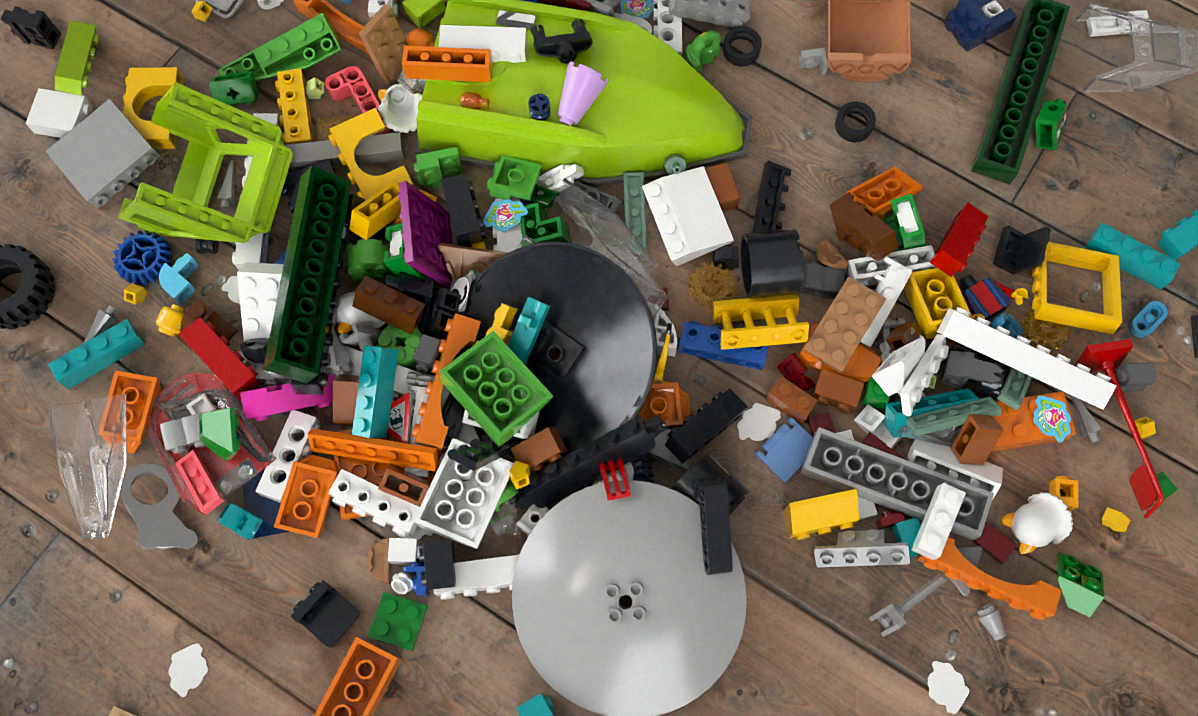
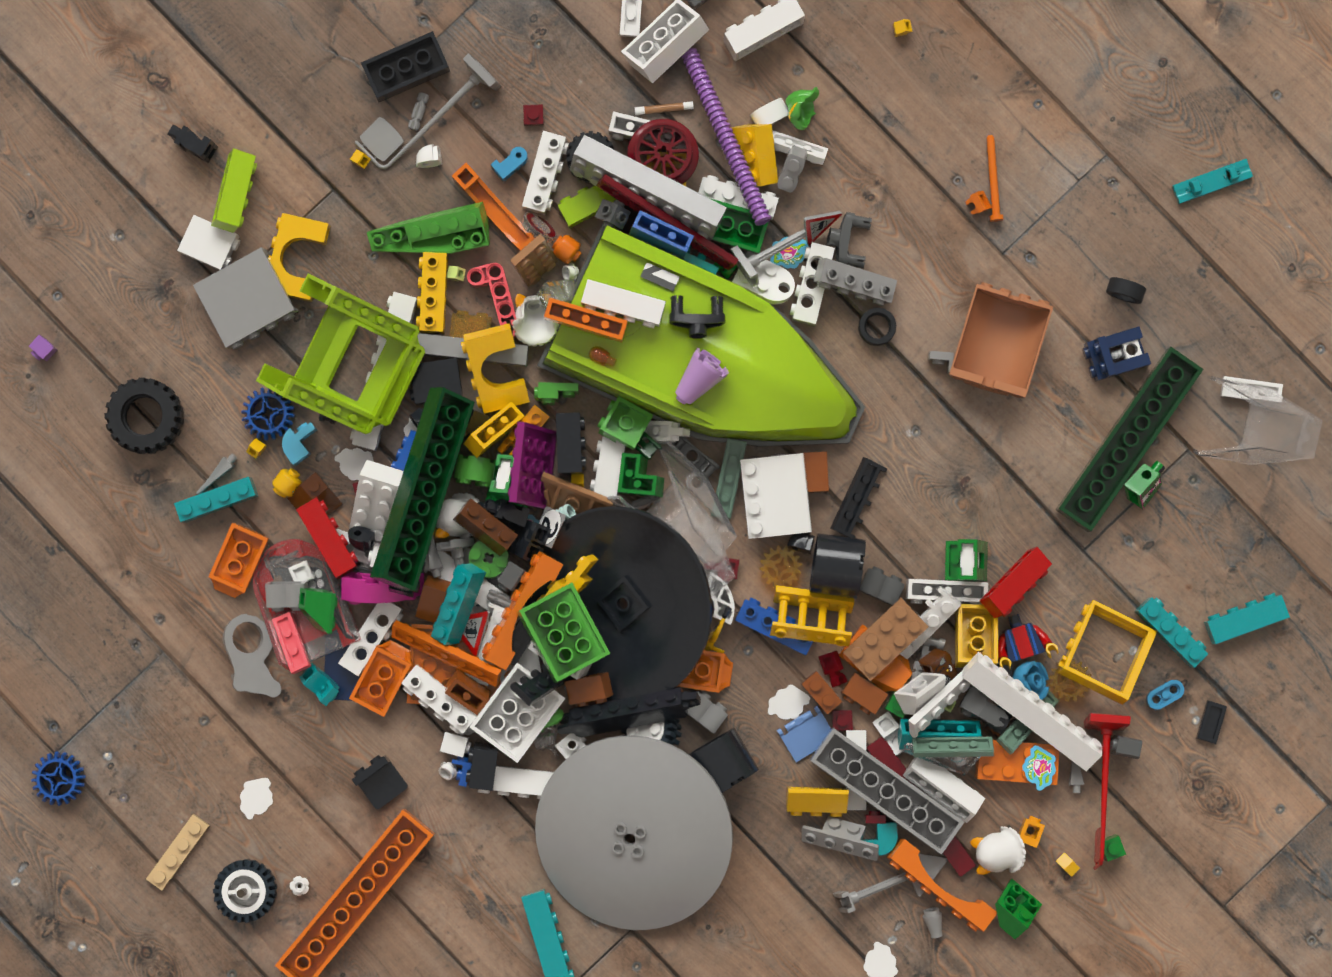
camera: 10 degrees right, 15 degrees up
(91, 459) = (199, 608): clear windscreen -> none
(226, 193) = (355, 363): light grey piece -> none
(242, 82) = (379, 258): green brick -> none
(378, 561) = (431, 745): medium nougat tile -> none
(398, 621) = (438, 801): green plate -> none
(504, 214) = (607, 456): sticker -> none
(519, 474) = (567, 709): yellow piece -> none
(528, 328) = (602, 582): teal hinge -> none
(542, 102) = (660, 374): dark blue wheel -> none
(612, 467) = (645, 723): red tile -> none
(674, 164) = (776, 446): sand green tile -> none
(703, 49) = (836, 323): bright green hair -> none
(705, 426) = (739, 699): black brick -> none
(715, 523) = (717, 796): black beam -> none
(830, 256) = (895, 565): medium nougat tile -> none
(855, 108) = (947, 433): black tyre -> none
(861, 229) = (929, 552): reddish brown wedge -> none
(882, 188) = (964, 517): orange slope -> none
(938, 521) = (907, 835): white brick -> none
(976, 439) = (966, 771): dark orange brick -> none
(1021, 251) = (1071, 602): black bracket -> none
(1145, 427) = (1122, 791): yellow piece -> none

